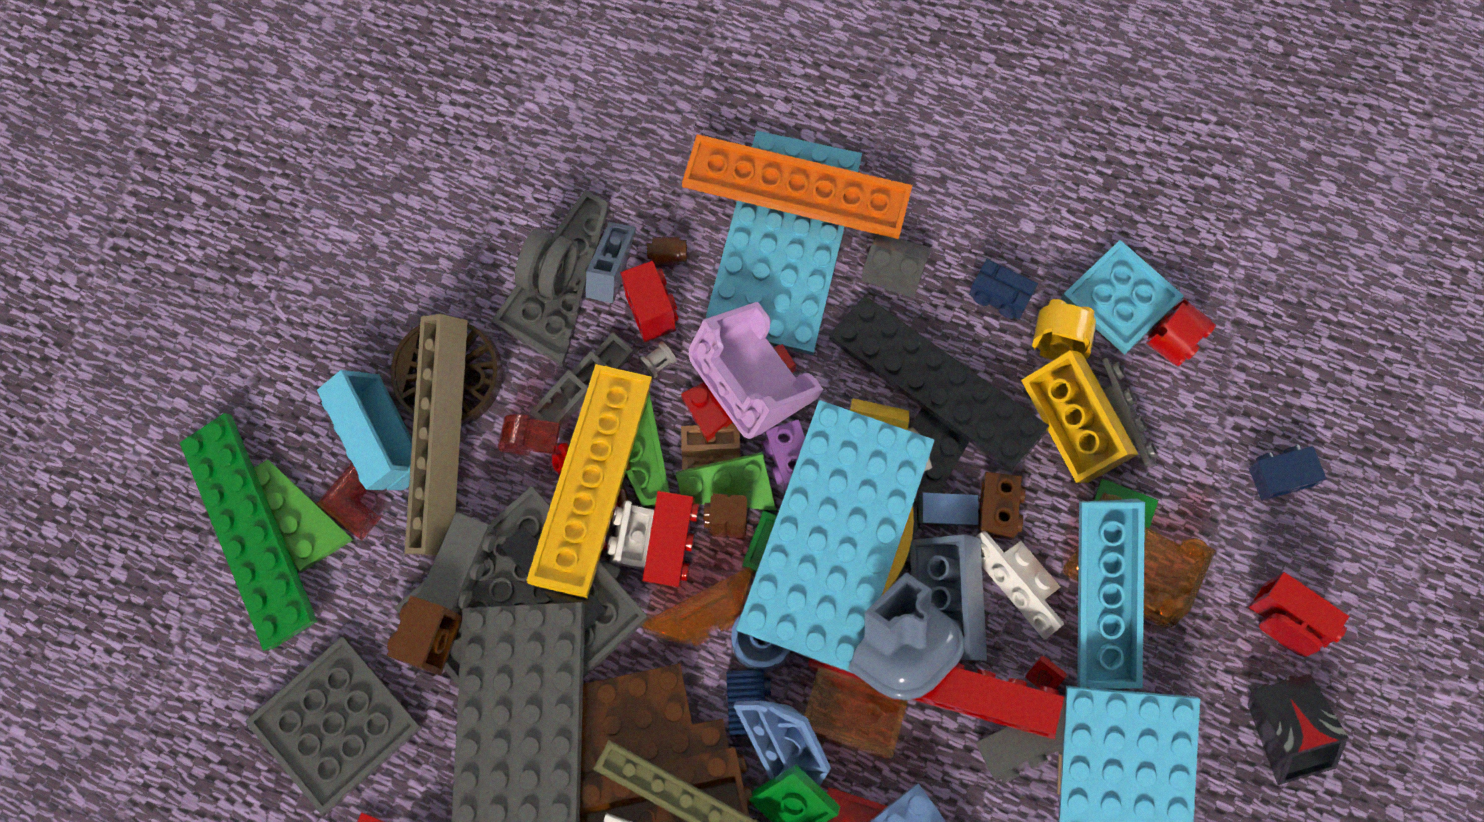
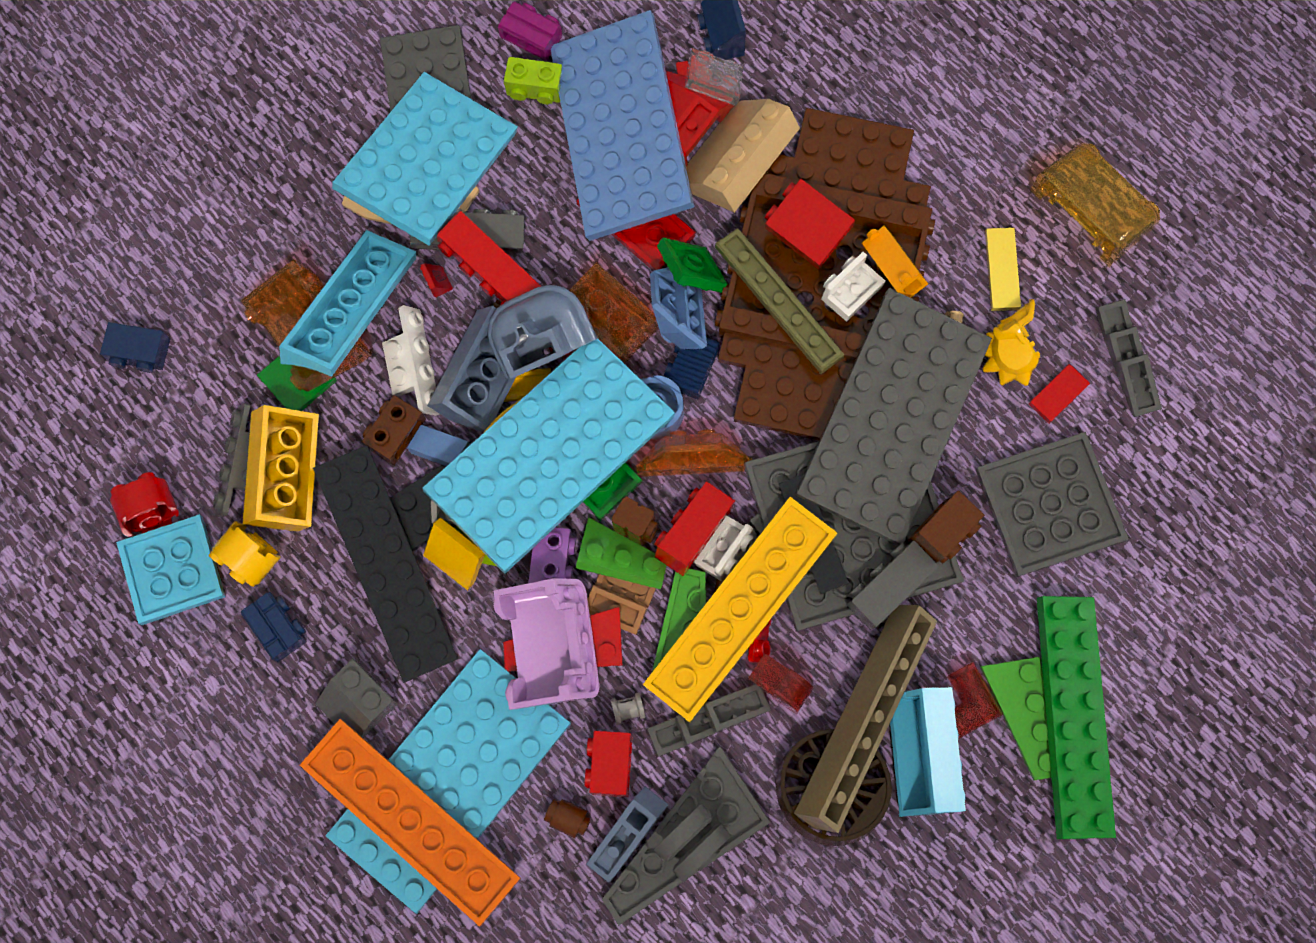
camera: 150 degrees left, 5 degrees up
(1296, 728) = (264, 153): black slope -> none
(1298, 616) = (208, 227): red brick -> none

